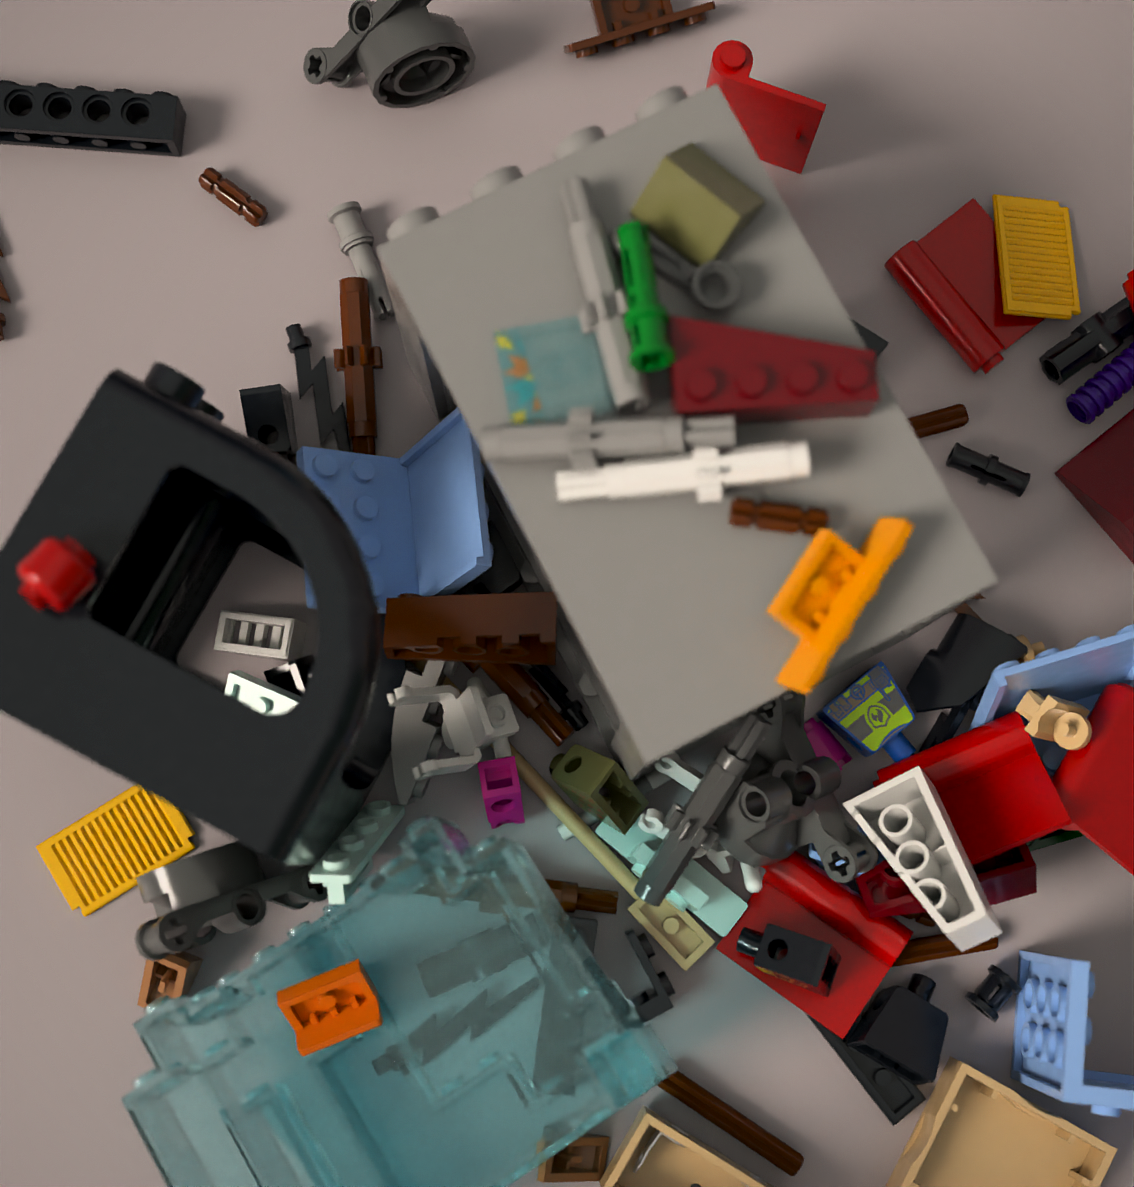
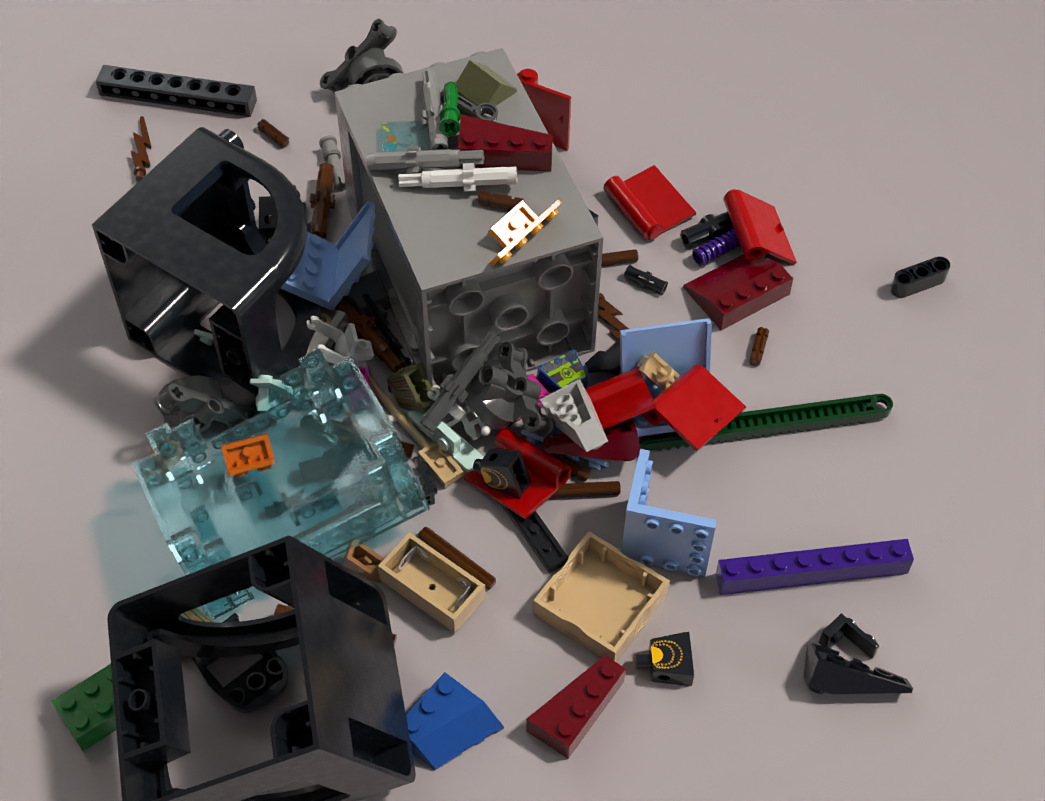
camera: 10 degrees right, 25 degrees down
(56, 574) = (161, 188): red head -> none
(114, 846) = (137, 404): yellow window -> none
(473, 628) = (359, 299): reddish brown wedge -> none
(904, 1031) = (558, 519): black torso -> none
(1006, 985) = (613, 511): black bush -> none
(1035, 258) = (683, 191): yellow window -> none

